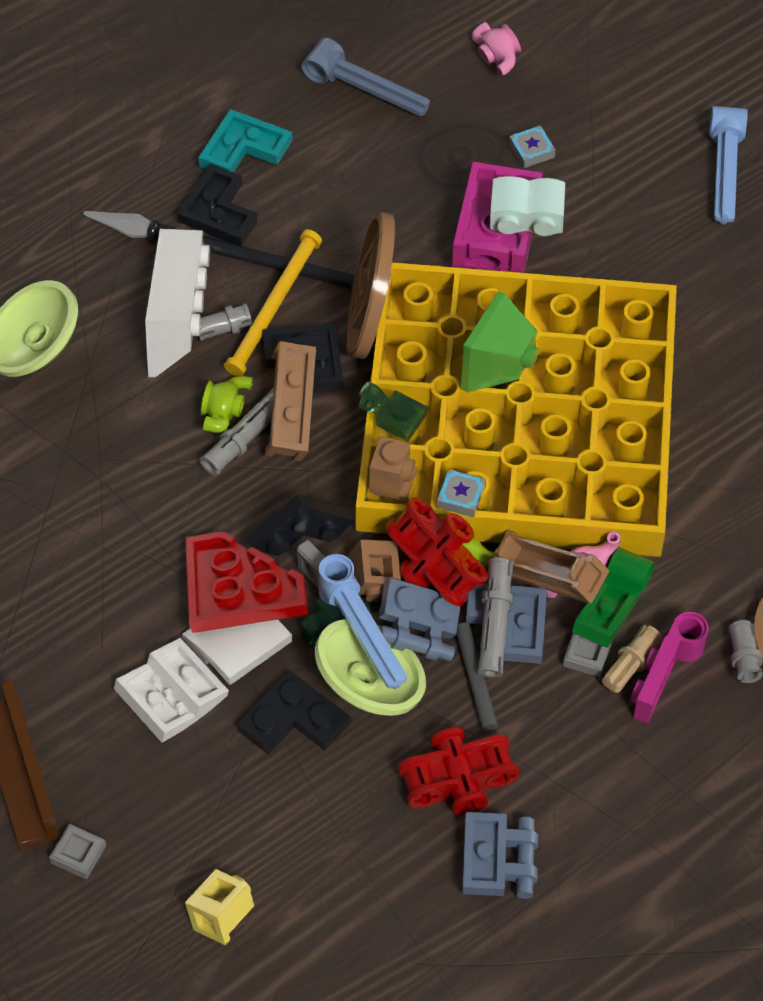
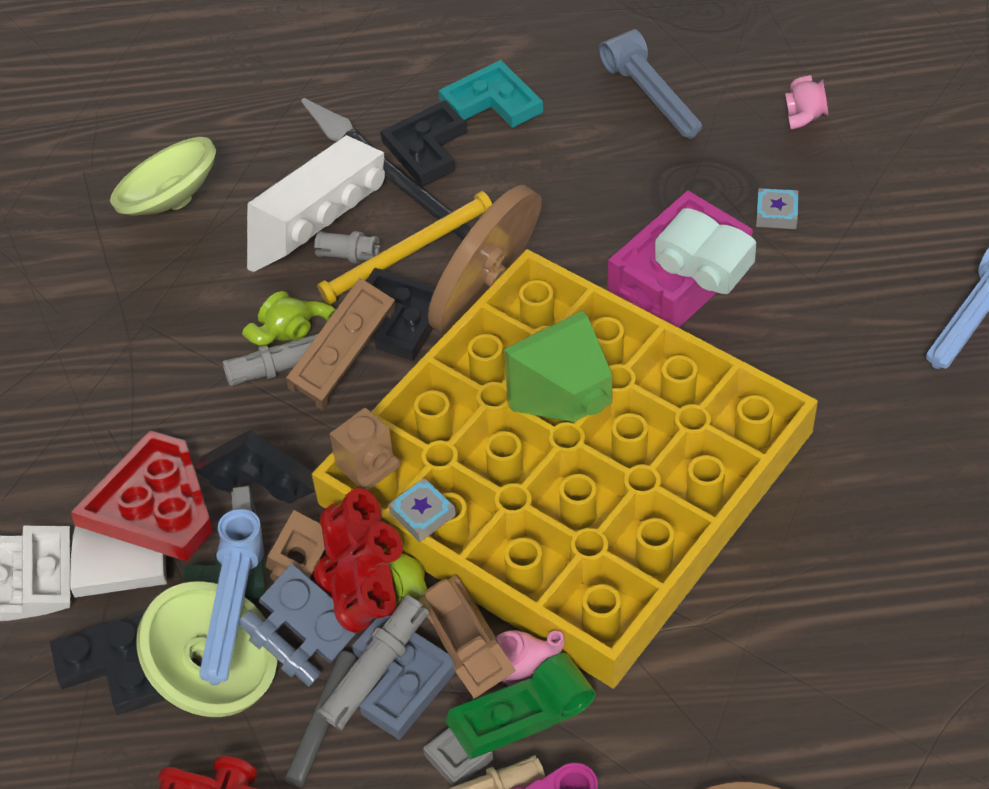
camera: 35 degrees right, 5 degrees down
(394, 414) = (418, 399): clear green plate -> none

